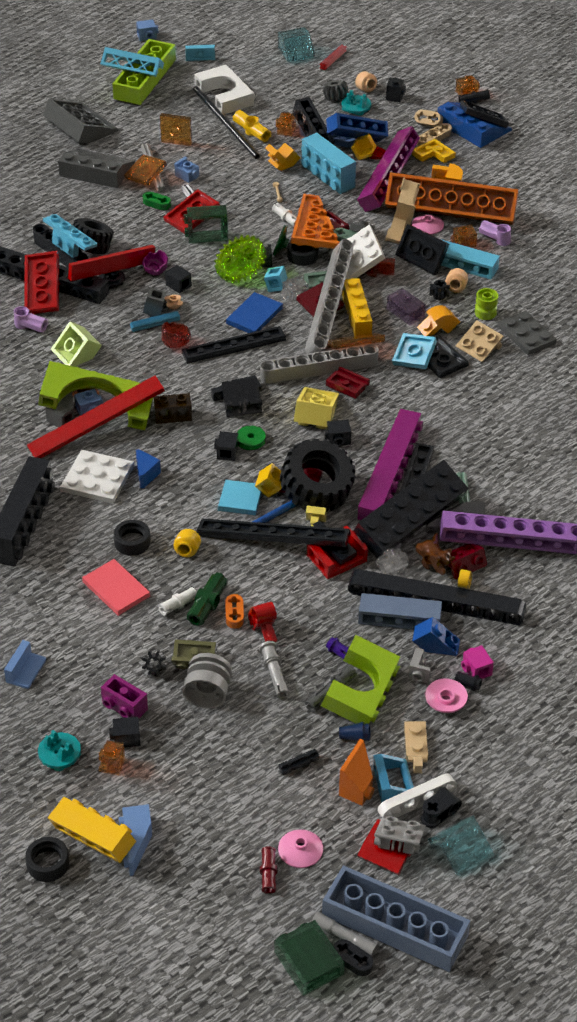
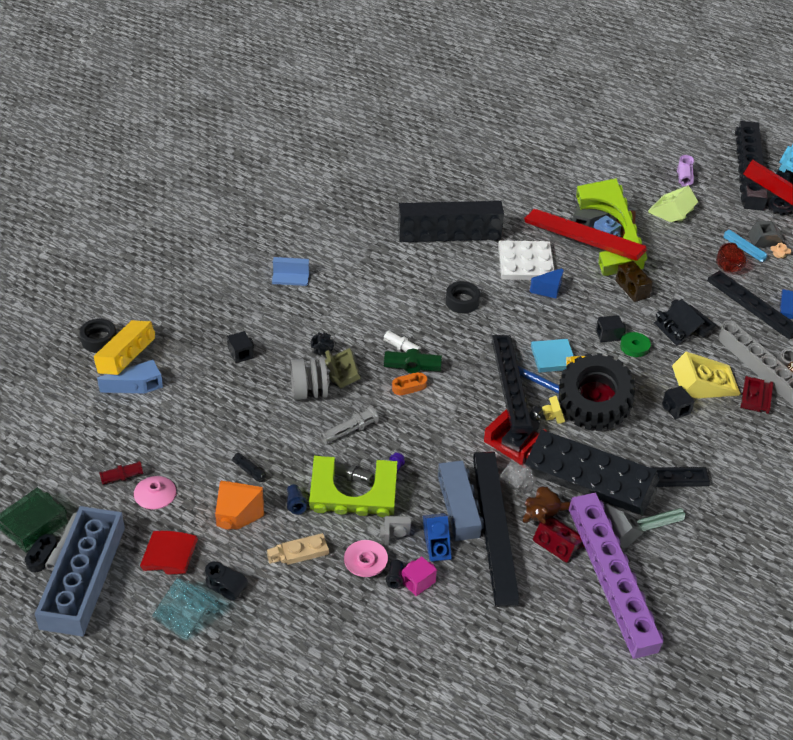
camera: 70 degrees right, 0 degrees up
(41, 282) = (732, 161): red tile -> none
(66, 749) = (211, 315): teal plate -> none
(112, 757) = (209, 339): clear orange brick -> none
(116, 587) = (402, 303): coral tile -> none
(124, 697) = (272, 334): magenta brick -> none
(187, 543) = (472, 331): yellow head -> none
(263, 618) = (401, 399): red beam -> none
(380, 764) = (245, 529): dark azure tile -> none
(391, 462) = (668, 450): magenta brick -> none
(396, 830) = (177, 551): light grey hinge -> none
(415, 797) = (227, 556): white beam -> none
(465, 579) = (522, 539): yellow beam -> none

